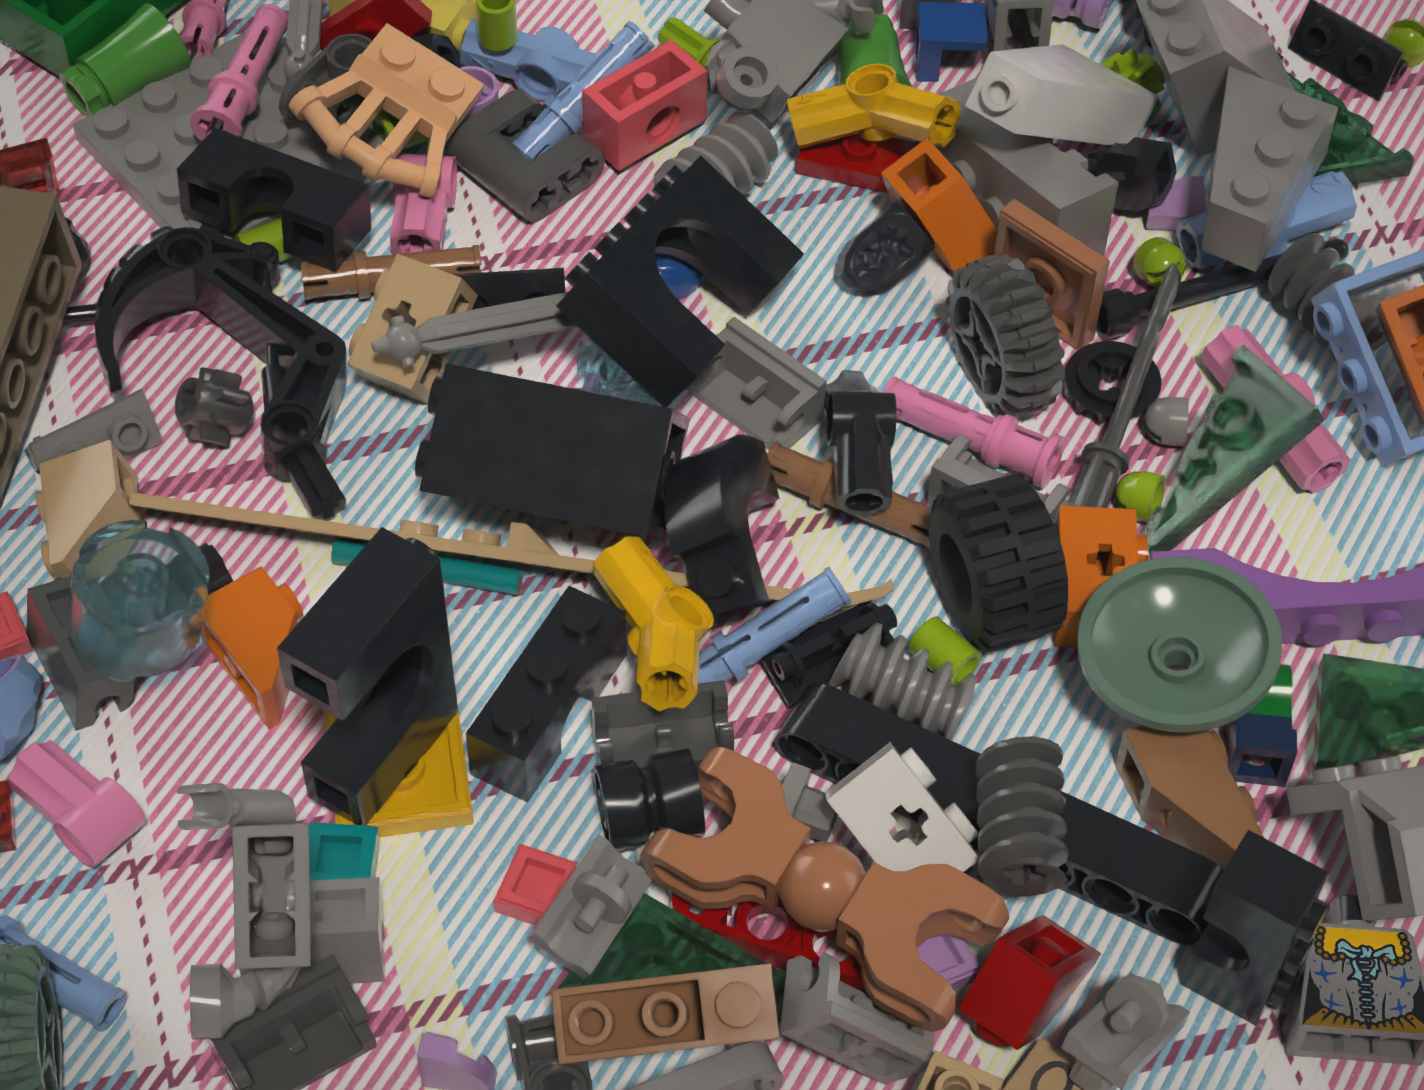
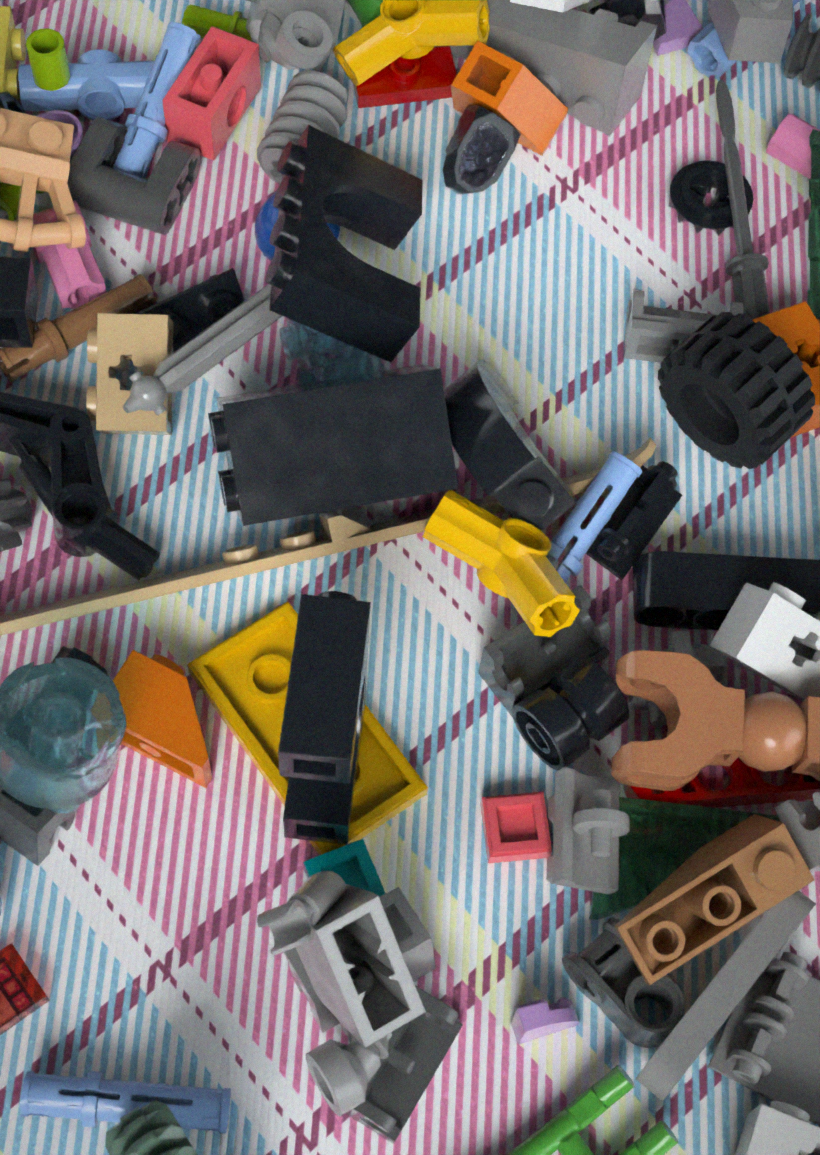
camera: 30 degrees left, 10 degrees up
(84, 812) = (101, 941): bright pink piece -> none
(453, 570) = (261, 583): teal bar -> none
(523, 721) = (434, 656): black arch -> none
(760, 388) = (456, 311): light grey hinge -> none
(817, 481) = (552, 374): medium nougat pin -> none
(862, 433) = (566, 319): black piece -> none
(904, 682) = (713, 520): light grey piece -> none
(945, 645) = (717, 481): lime hinge -> none
(996, 439) = (658, 280): bright pink pin -> none
(1005, 335) = (625, 190): dark grey gear -> none
(1061, 265) = (626, 124): nougat tile -> none
(1124, 309) = (684, 134): black piece -> none
(1141, 492) = (786, 285): lime hinge -> none
(1155, 257) = (693, 82): lime hinge -> none
(1168, 421) = (774, 213): light grey hinge -> none

